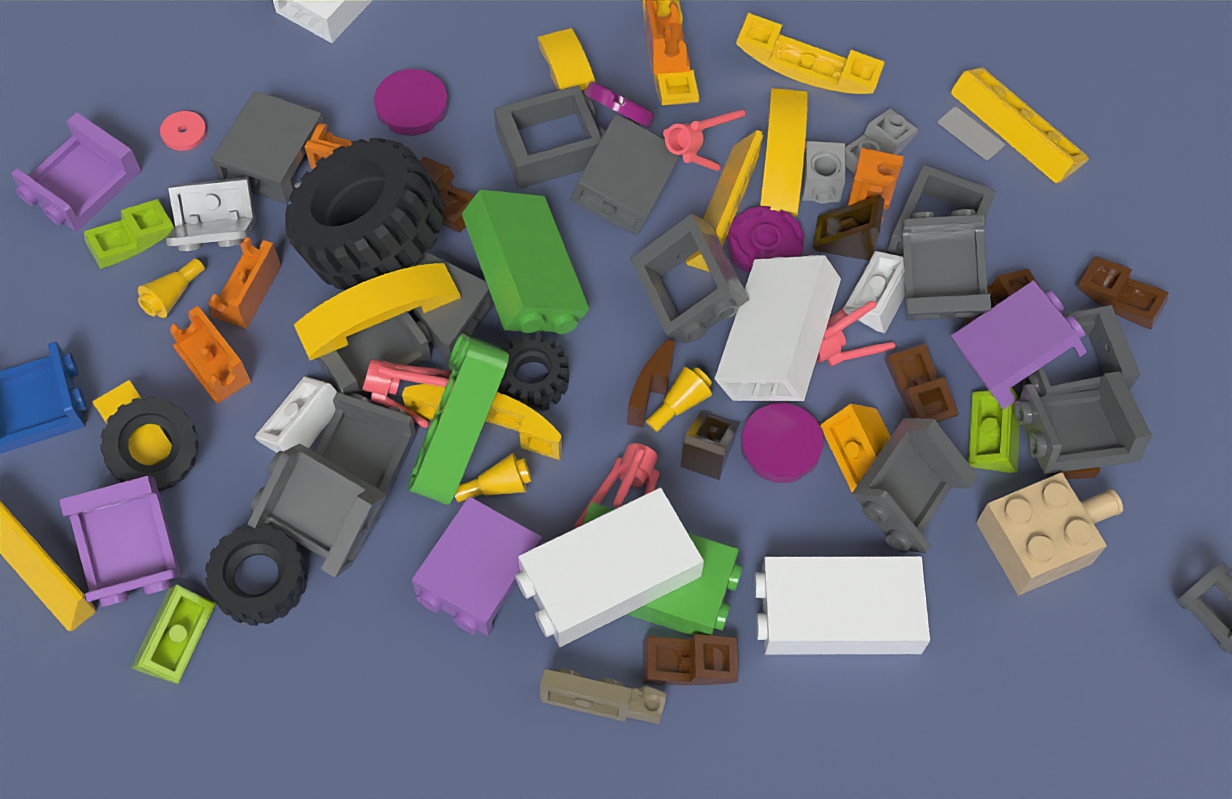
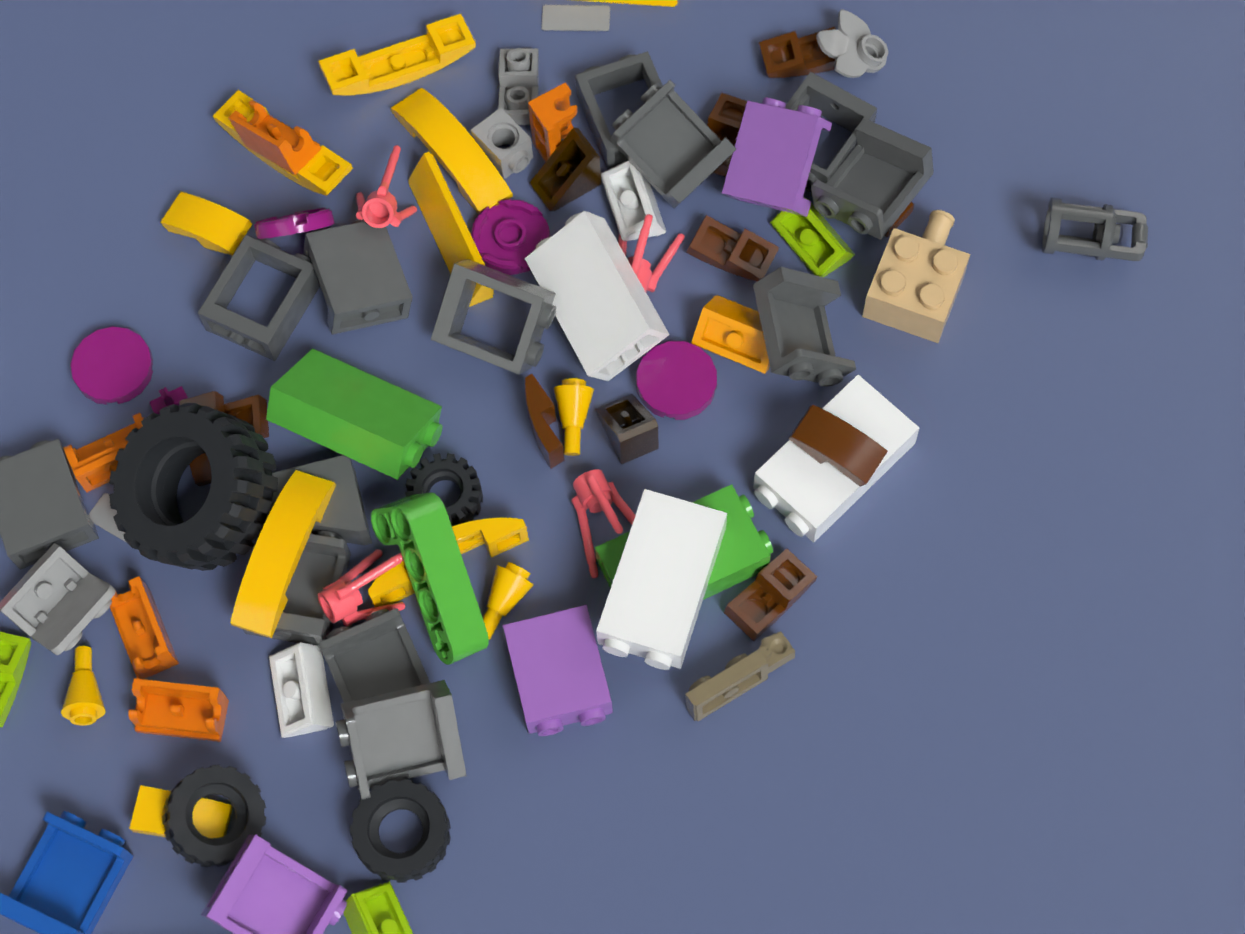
camera: 40 degrees left, 5 degrees up
(422, 150) = (167, 398): none -> magenta piece
(848, 593) = (839, 443): none -> reddish brown slope
(1168, 318) = (853, 46): none -> light grey plate

